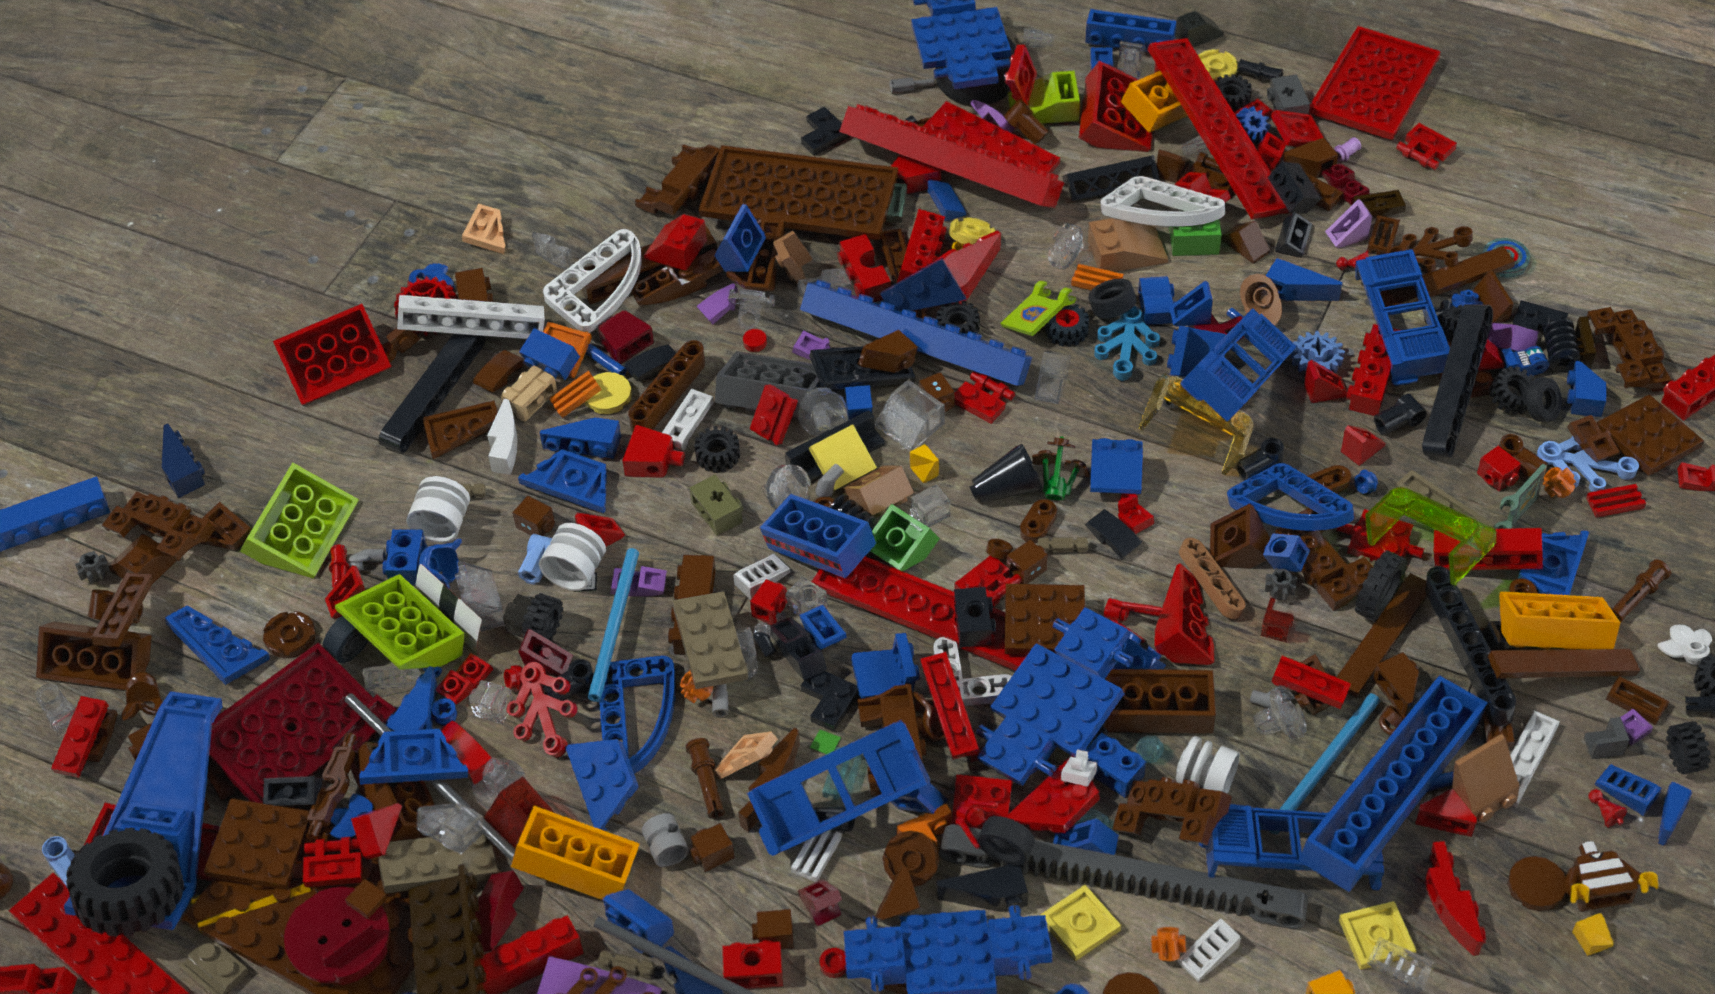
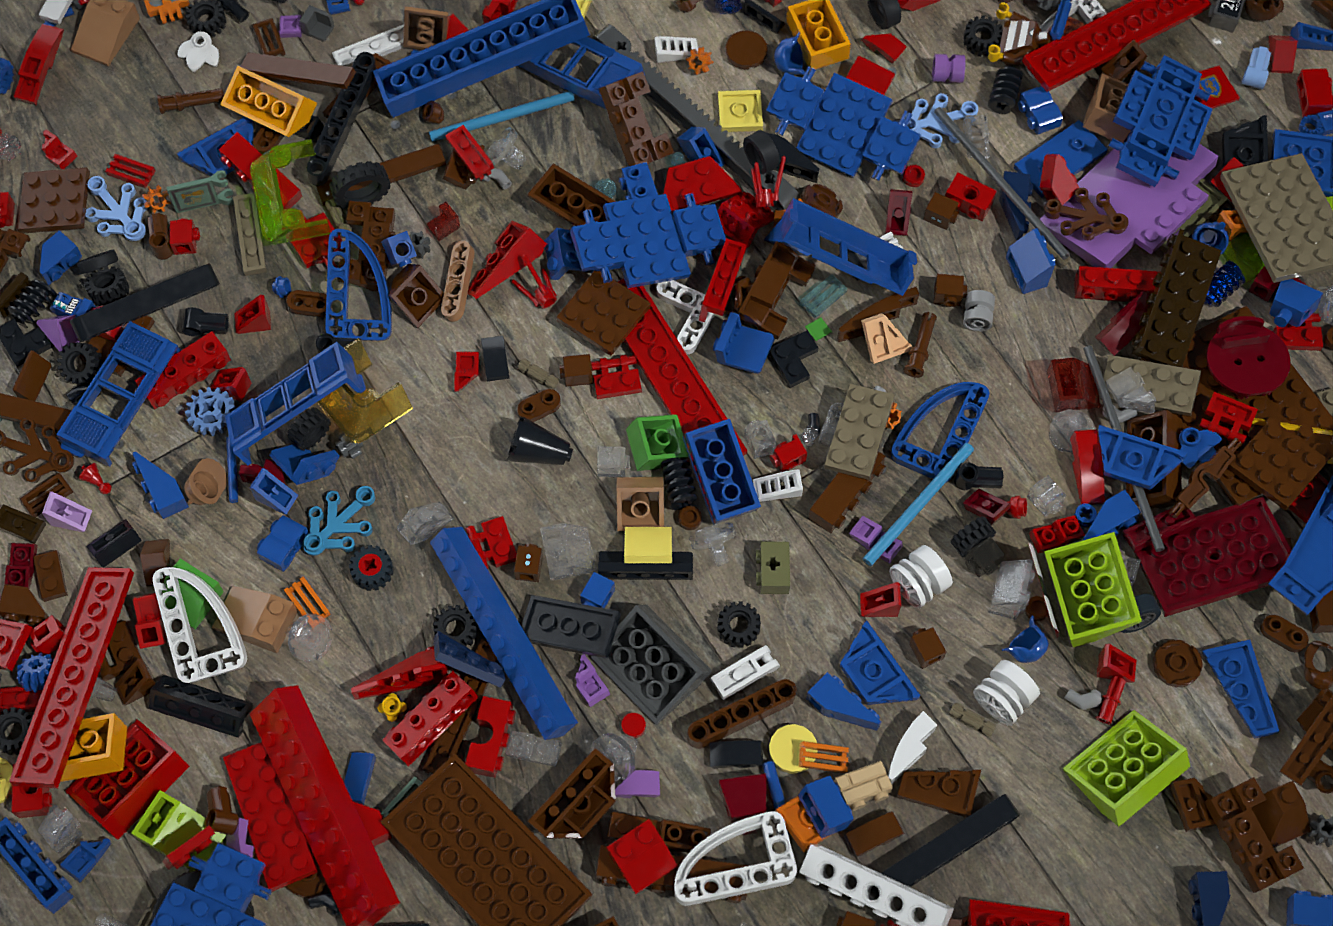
camera: 150 degrees left, 15 degrees up
(291, 790) = (1237, 489): black slope -> none
(366, 899) = (1218, 366): reddish brown tile -> none
(375, 830) = (1186, 416): red slope -> none
(404, 554) = (1048, 671): blue brick -> none
(530, 568) = (939, 611): light blue piece -> none
(540, 706) = (1006, 487): red plant -> none
(574, 854) = (1052, 323): light orange slope -> none
(603, 777) = (996, 383): blue wing -> none
(650, 454) = (796, 652): red torso -> none
(740, 242) = (591, 805): blue slope -> none
(773, 414) = (676, 618): red plate -> none
(792, 255) = (551, 777): medium nougat bracket -> none
(798, 648) = (793, 404): black slope -> none
(821, 411) = (637, 591): clear tile -> none
(822, 627) = (767, 397): blue slope -> none
(827, 481) = (679, 529): light grey arm -> none
(889, 353) = (540, 615): reddish brown slope -> none
(899, 896) = (851, 181): reddish brown slope -> none
(924, 463) = (586, 505): yellow slope -> none
(969, 230) = (368, 717): light yellow tile -> none
(972, 629) = (654, 349): black brick -> none
(998, 548) = (588, 396): reddish brown tile -> none
(1037, 310) = (390, 591): lime flag -> none
(1056, 487) = (488, 422): plant -> none
(1079, 769) = (670, 186): white tile -> none
(1112, 298) = (320, 579): black tyre -> none
(1116, 466) = (450, 401): blue slope -> none
(1208, 770) = (588, 138): white wheel -> none
(1294, 187) = (73, 574): black brick -> none
(1397, 681) = (405, 131): reddish brown slope -> none
(1465, 297) = (52, 391): blue plant -> none
(1592, 440) = (98, 215): reddish brown slope -> none

